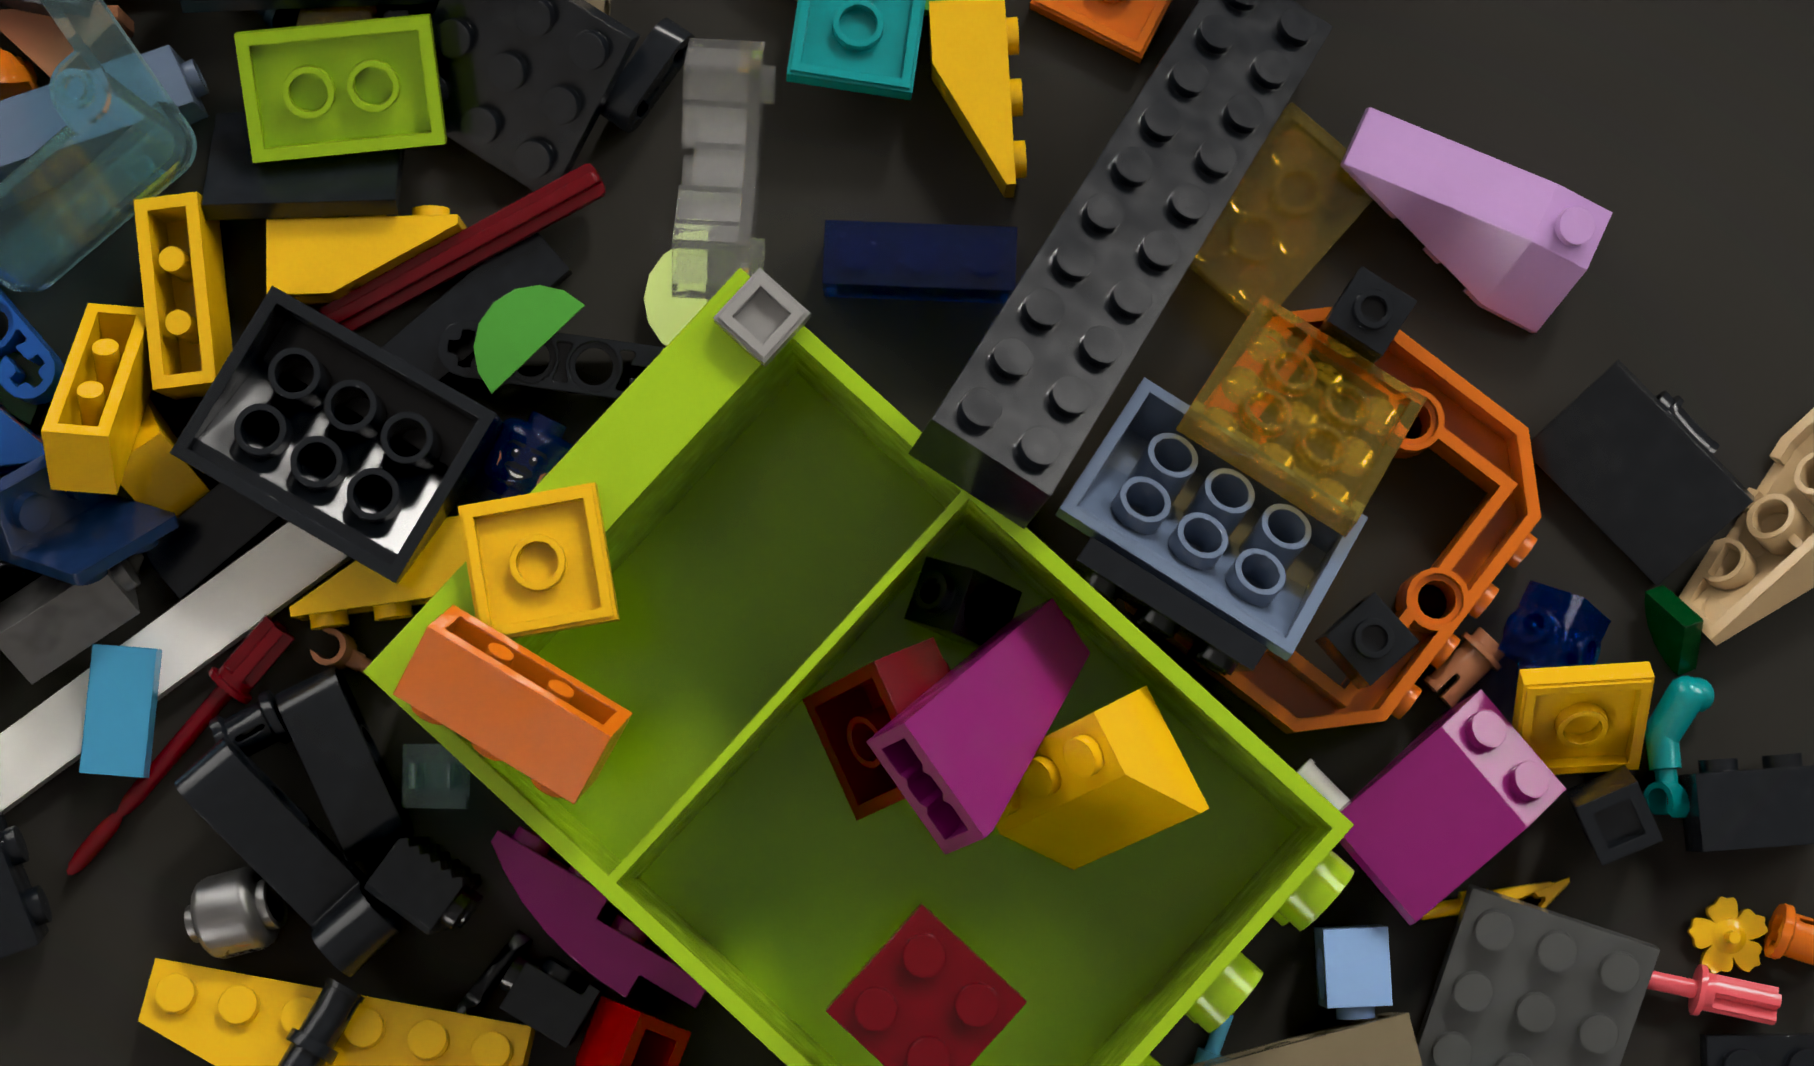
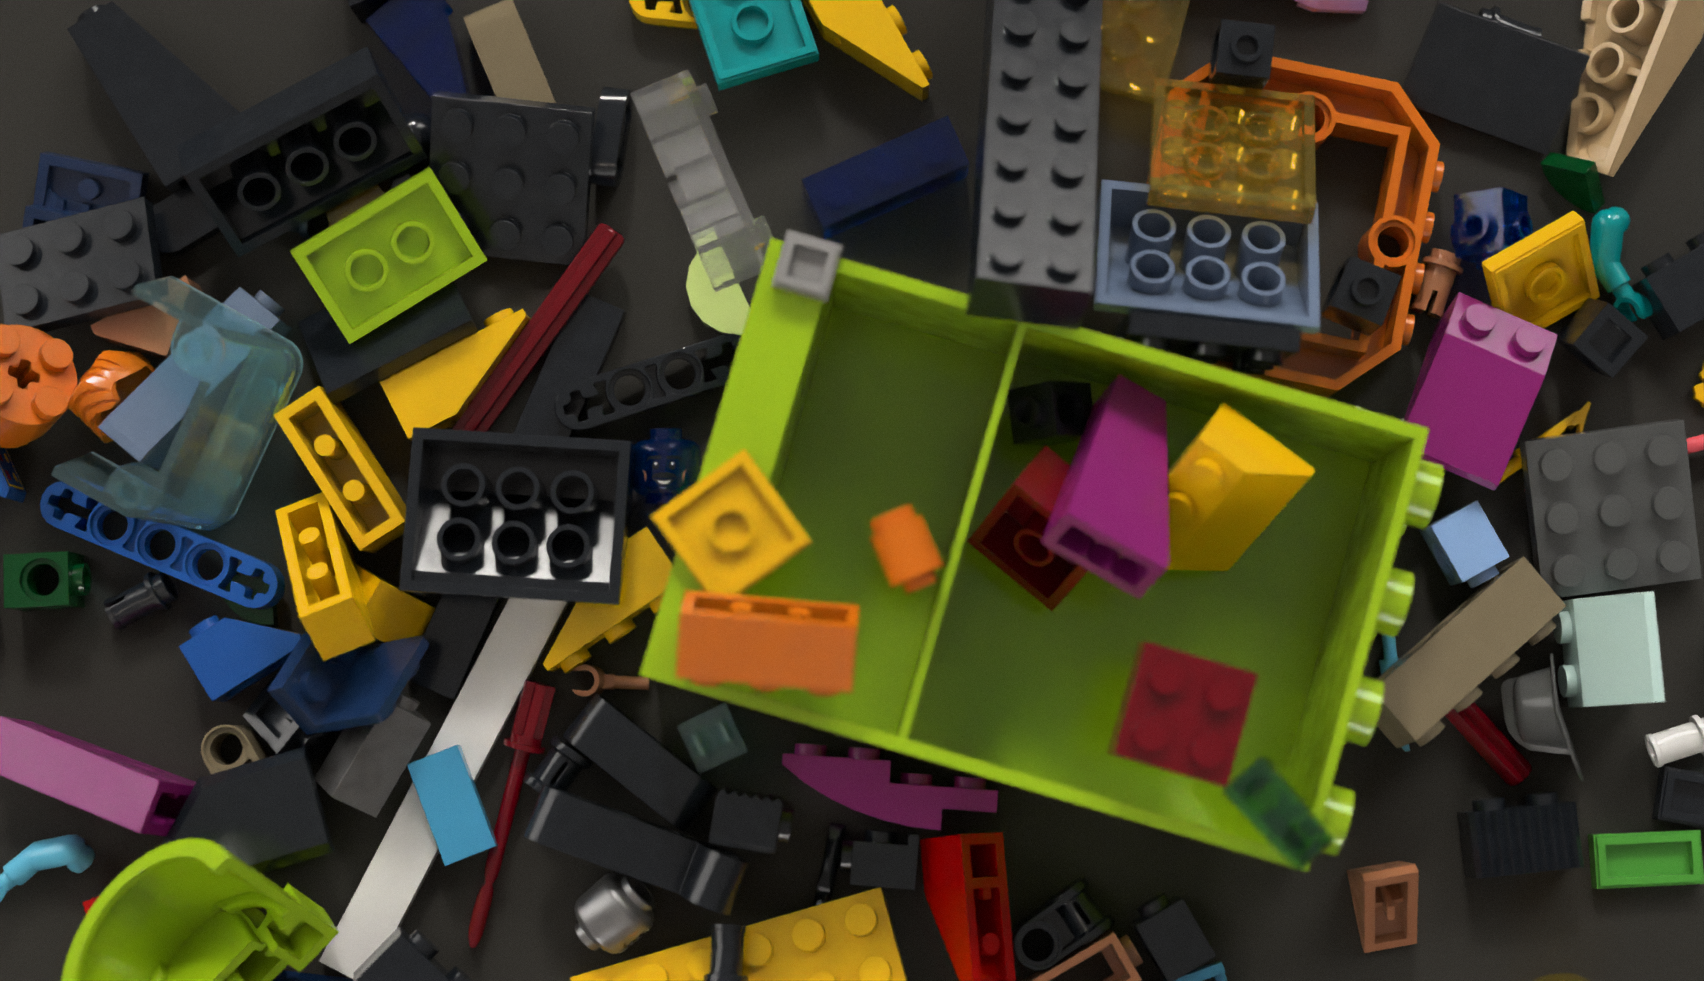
camera: 25 degrees left, 0 degrees up
(518, 328) = (611, 372): bright green tile -> none
(713, 676) = (905, 549): none -> orange brick

